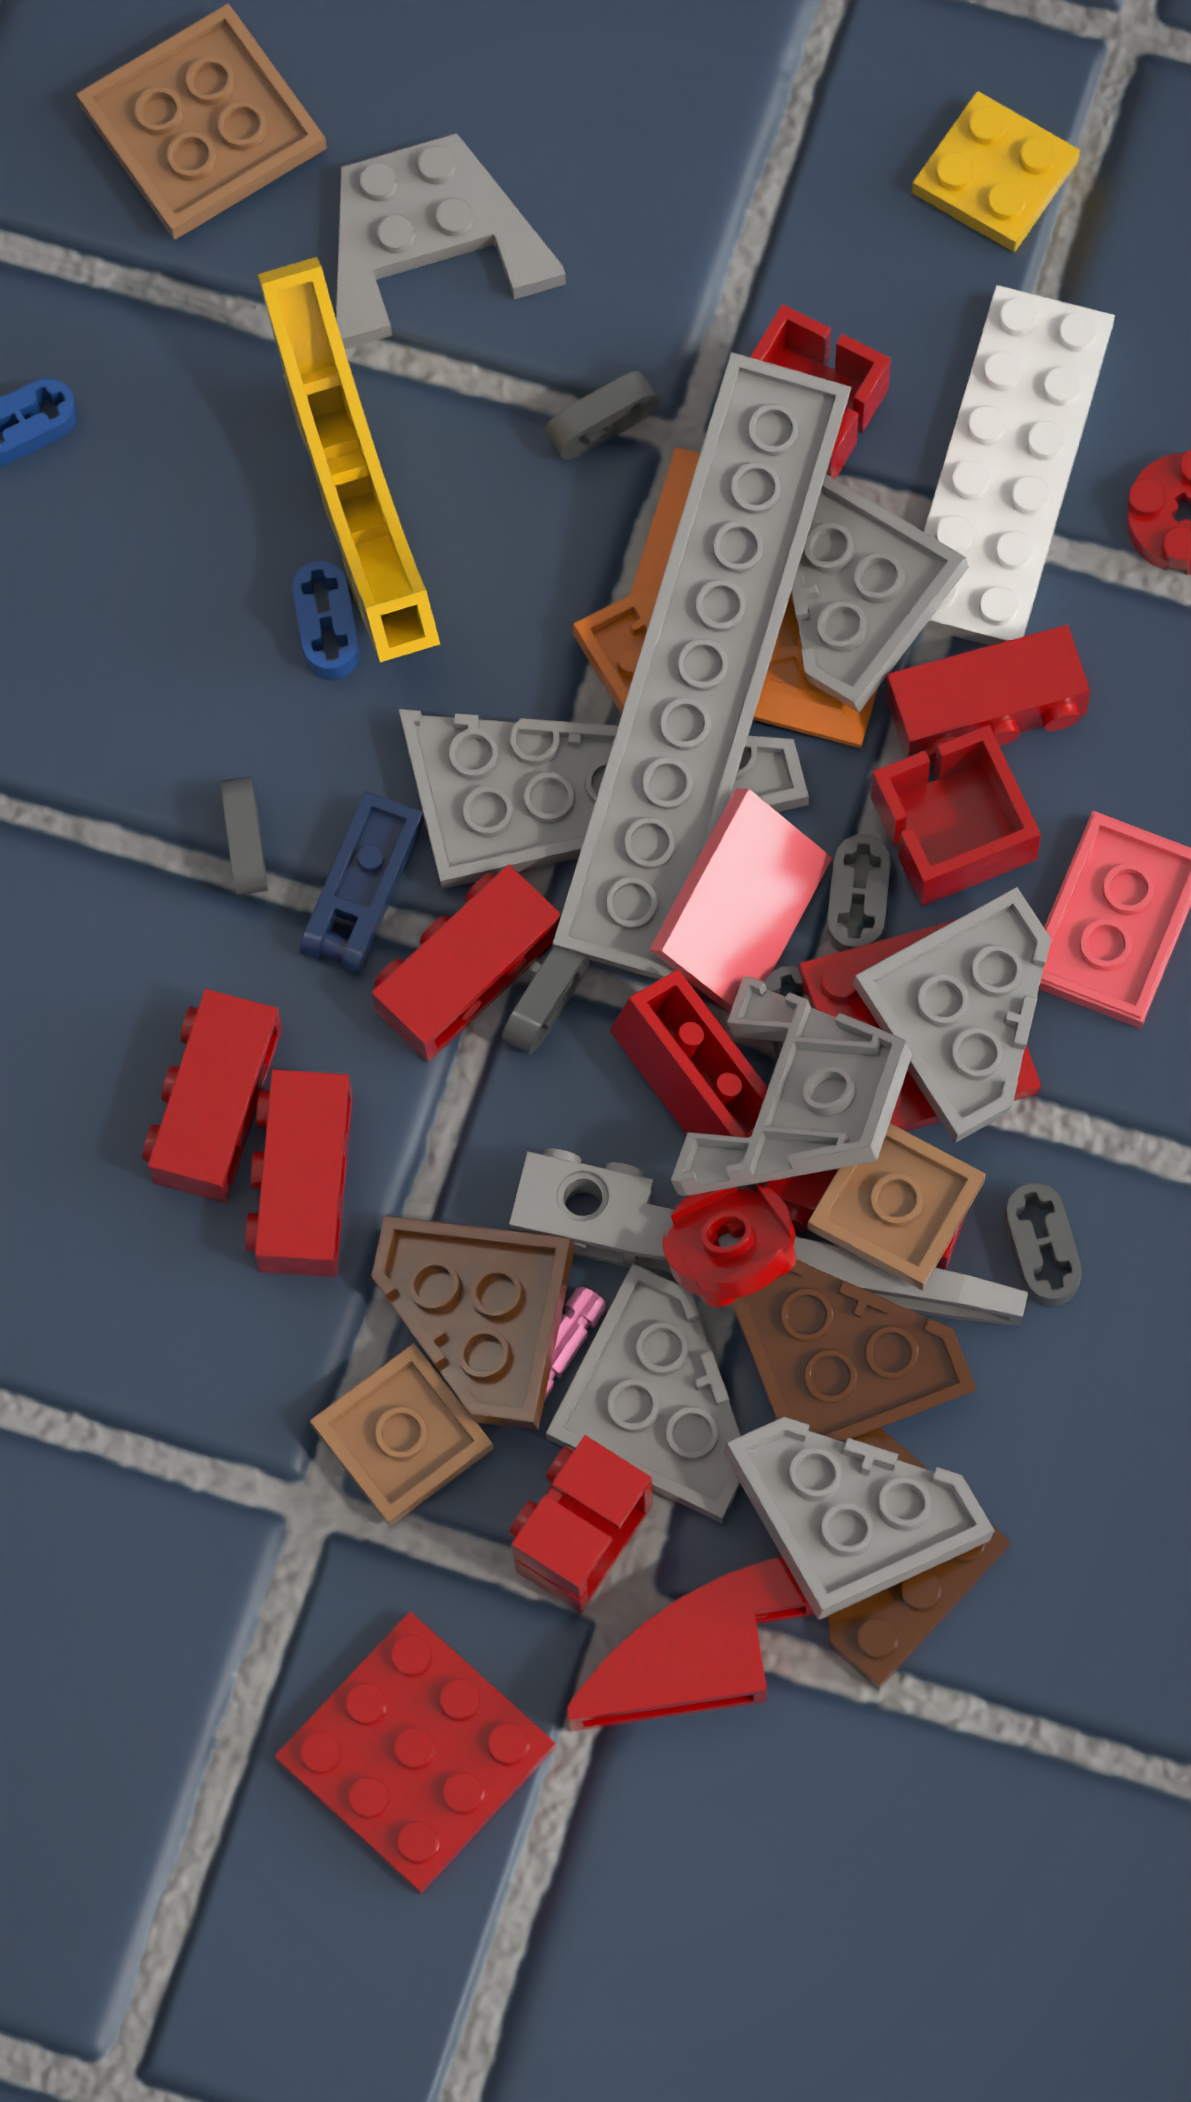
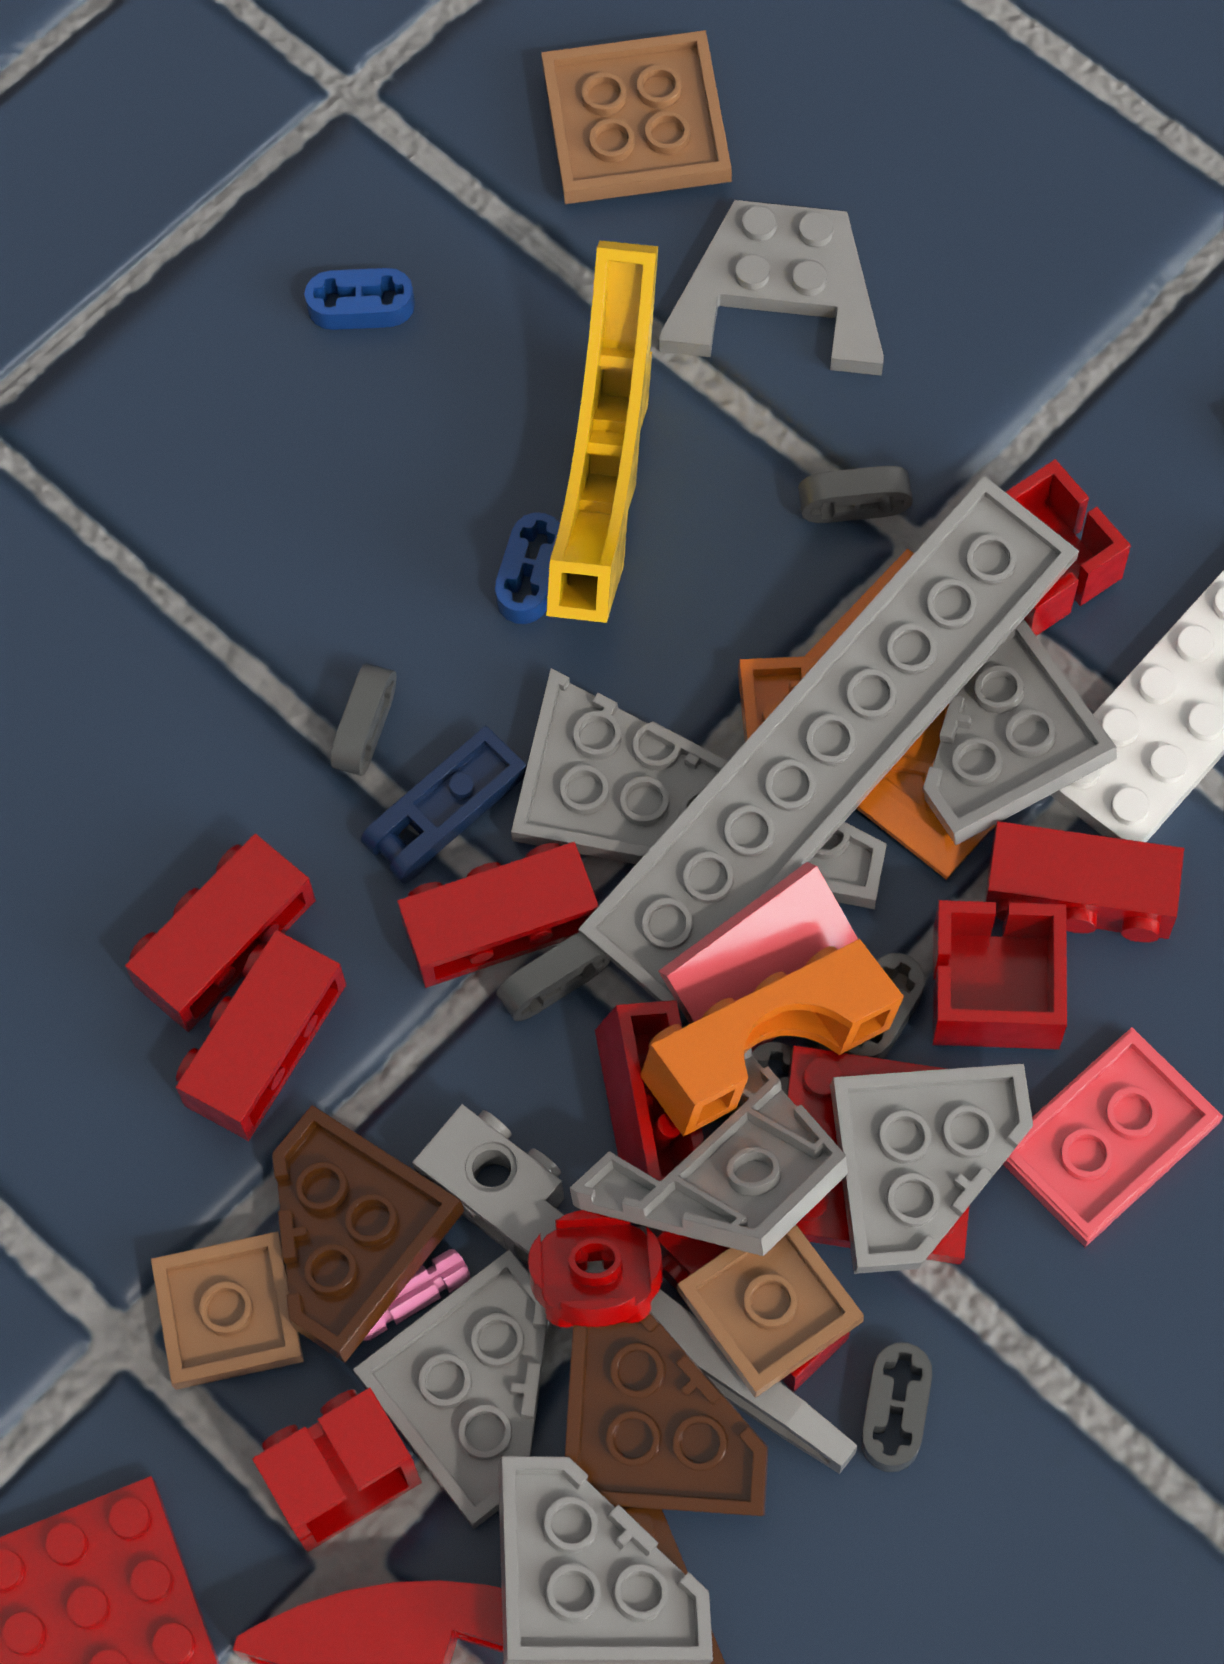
camera: 25 degrees right, 5 degrees down
(819, 908) = (833, 1000): none -> orange arch

